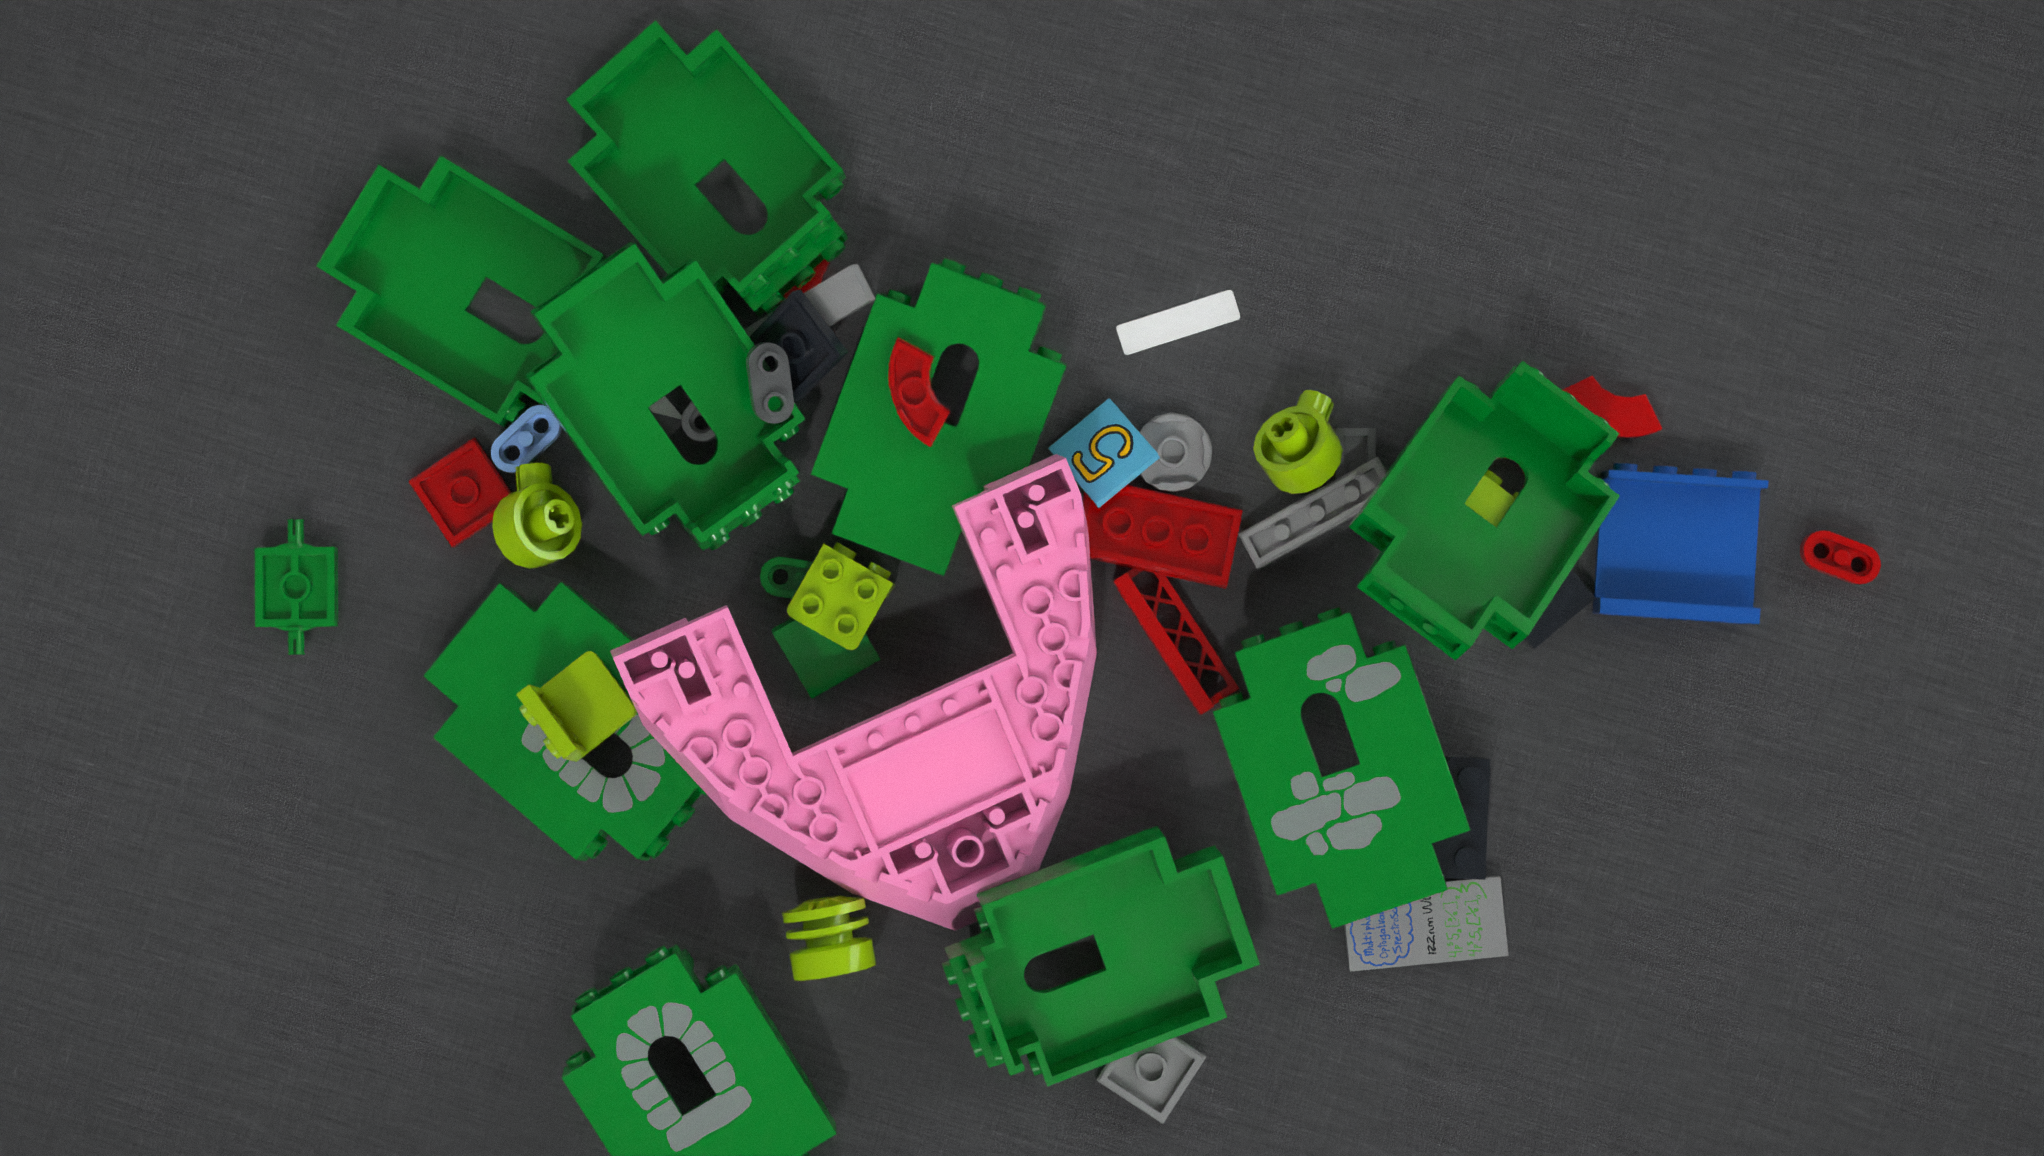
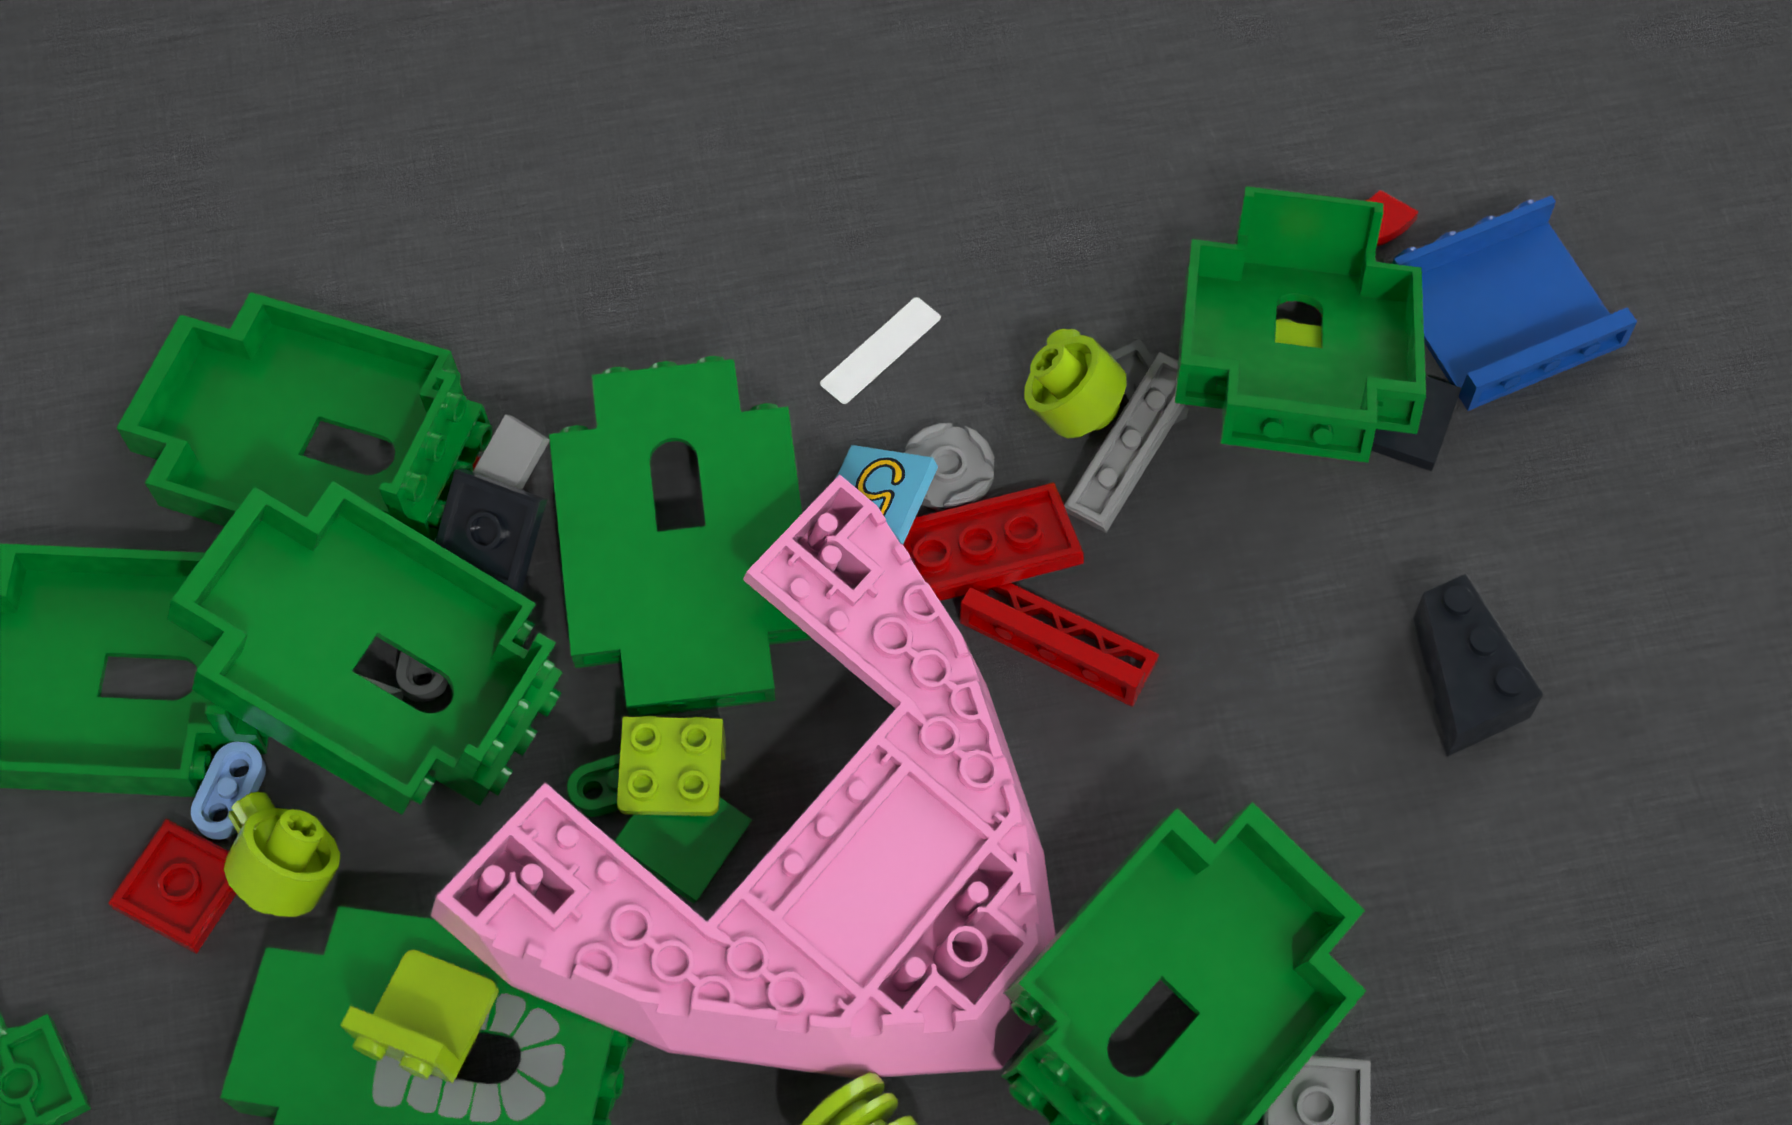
camera: 30 degrees left, 25 degrees down
(769, 383) = (472, 573): dark grey plate -> none
(913, 393) = (641, 511): red tile -> none
(1359, 829) = (1377, 703): green panel -> none
(1440, 928) = (1508, 791): light grey tile -> none
(1838, 557) = (1663, 238): red plate -> none

